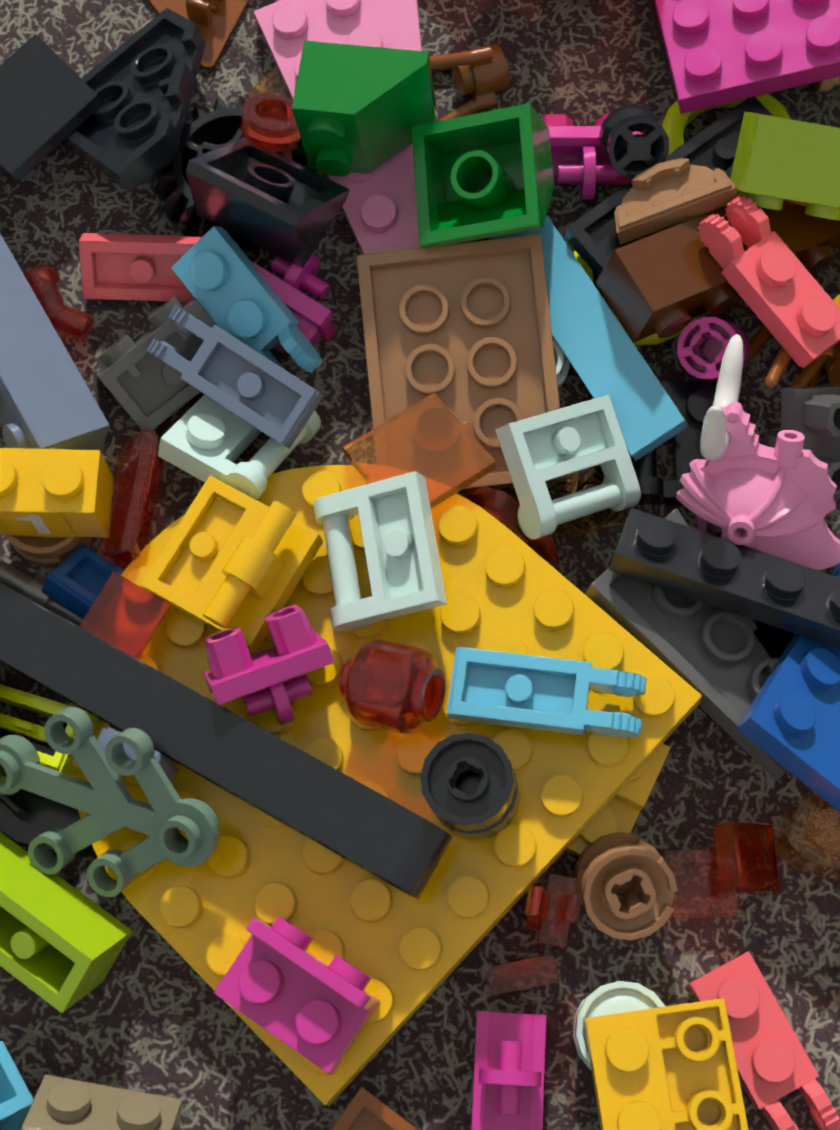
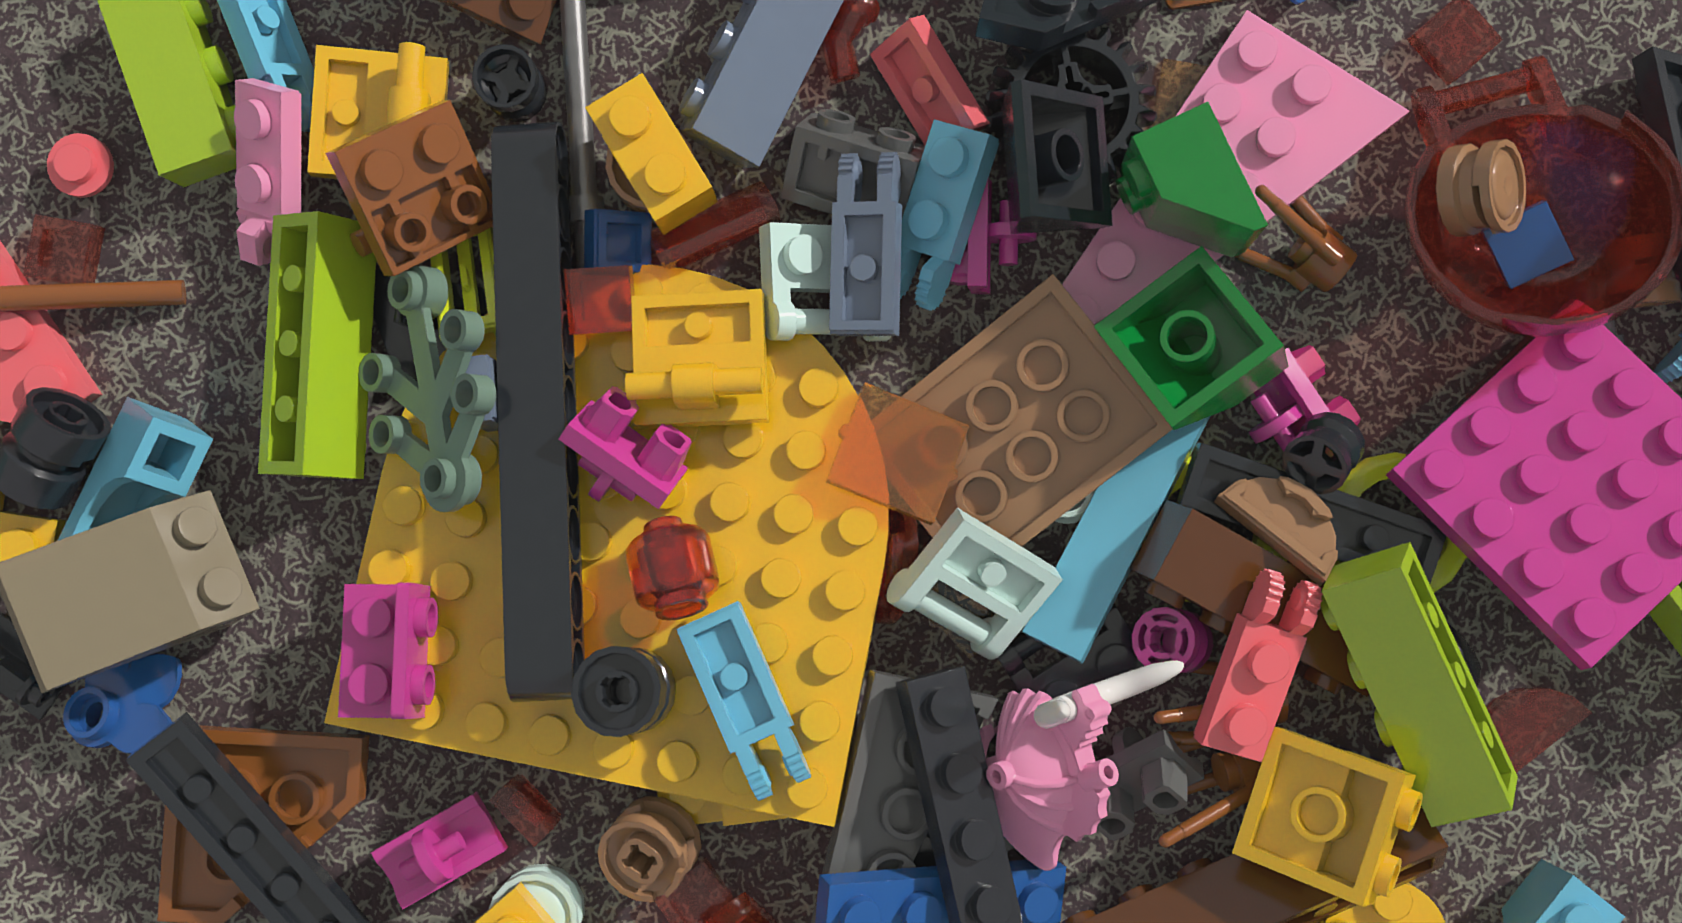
camera: 60 degrees right, 15 degrees up
(269, 122) = (1129, 109): clear red tile -> none
(397, 548) = (793, 494): light aqua plate -> none
(553, 911) = (589, 804): clear red plate -> none

